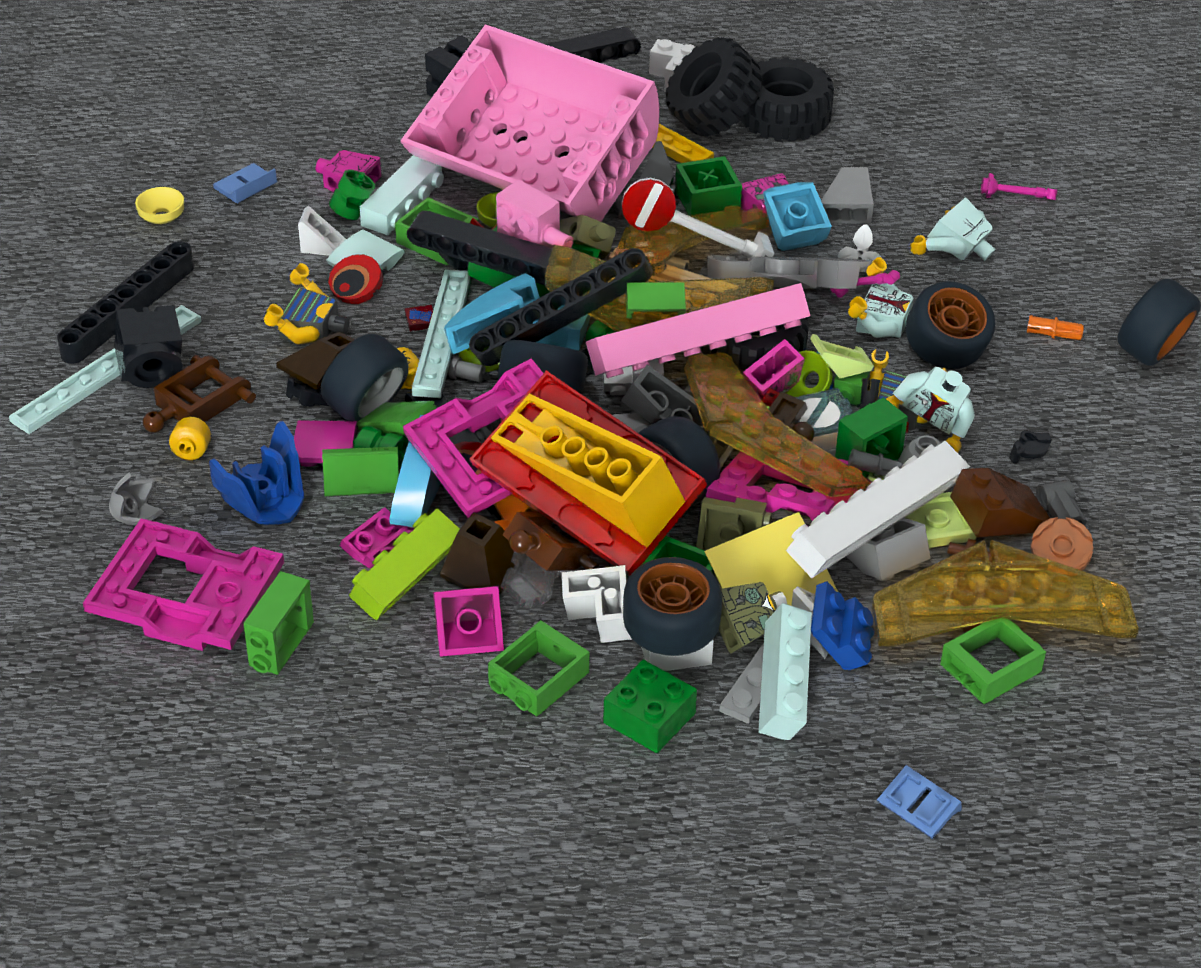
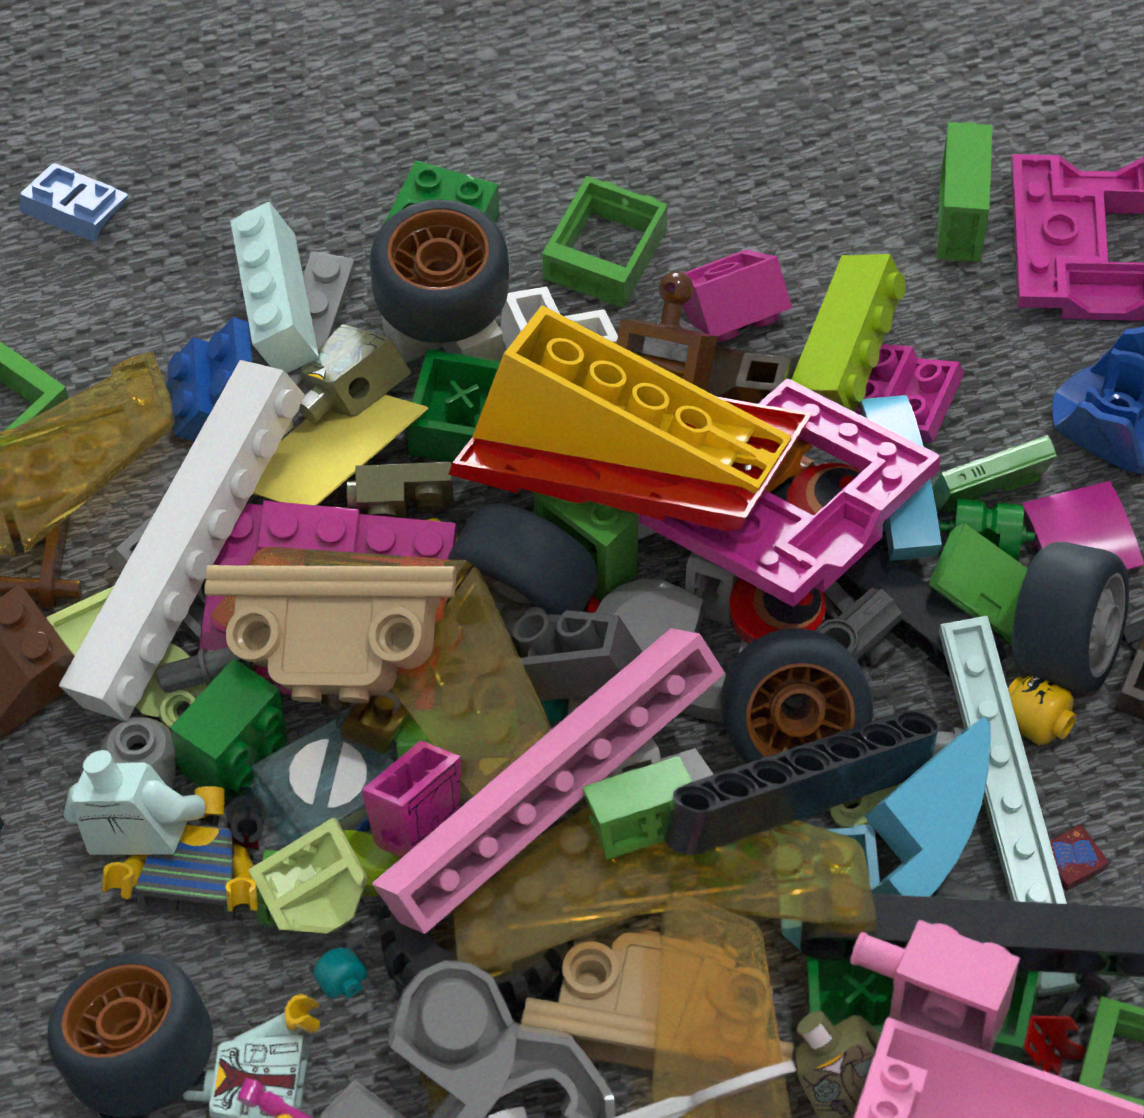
camera: 165 degrees right, 15 degrees up
(799, 420) = (332, 624): none -> tan brick

